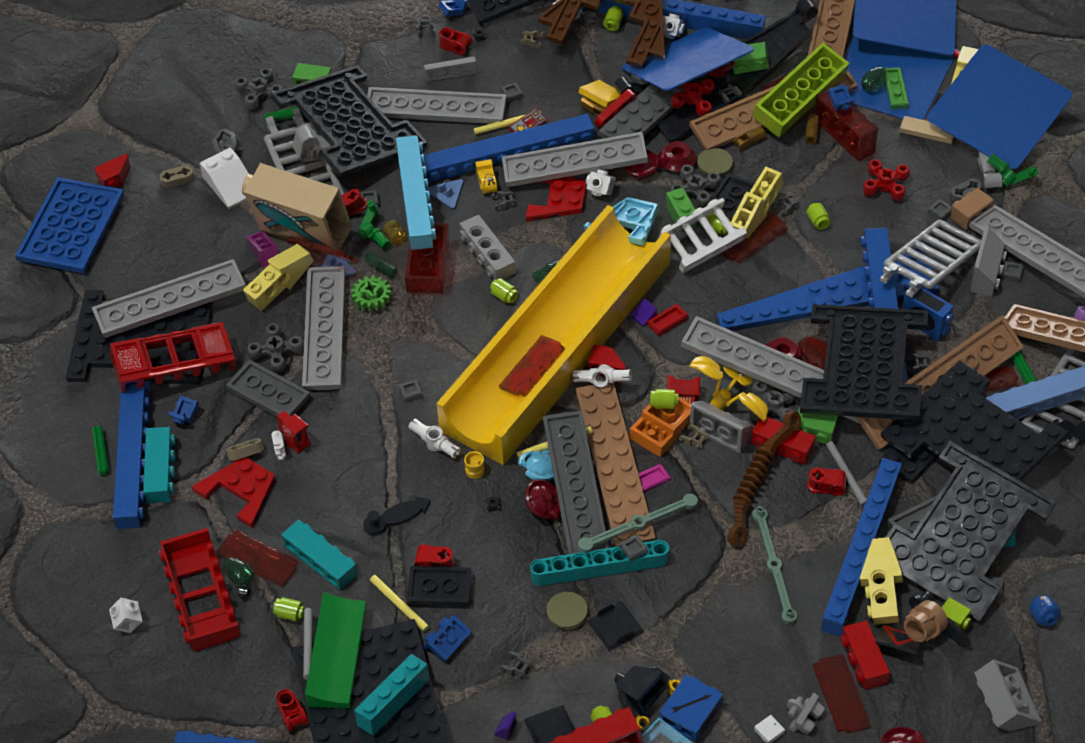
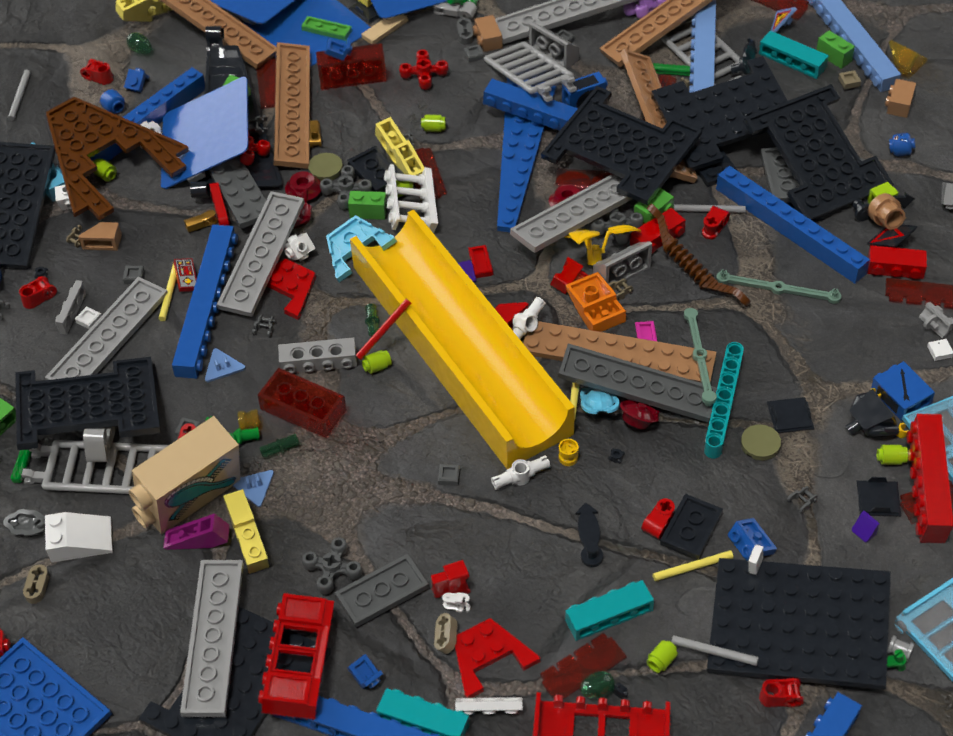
camera: 65 degrees left, 0 degrees up
(189, 504) = (489, 705): none -> white plate
(320, 248) = (242, 478): clear red windscreen -> none
(324, 328) = (331, 516): light grey plate -> none
(335, 652) = (738, 628): green arch -> none
(371, 293) = (313, 463): bright green gear -> none
(392, 694) = (817, 593): teal brick -> none
(413, 640) = (755, 559): none -> white tile
(414, 192) = (225, 378): medium azure brick -> none
(449, 84) = (87, 317): none -> white tile
(486, 176) = (229, 327): yellow leg -> none
(525, 273) = (383, 329): none -> red bar
(532, 366) = (489, 365): clear red windscreen -> none
(537, 53) = (101, 237): none -> medium nougat slope
(599, 93) = (190, 209): yellow tile -> none
(633, 548) = (729, 365): dark grey tile -> none
(663, 399) = (583, 285): lime brick -> none
(798, 90) = (299, 75): lime brick -> none
(811, 129) = (334, 93): pearl gold bar -> none
(873, 79) = (311, 34): clear green animal -> none
(883, 564) = (827, 212): light yellow brick -> none

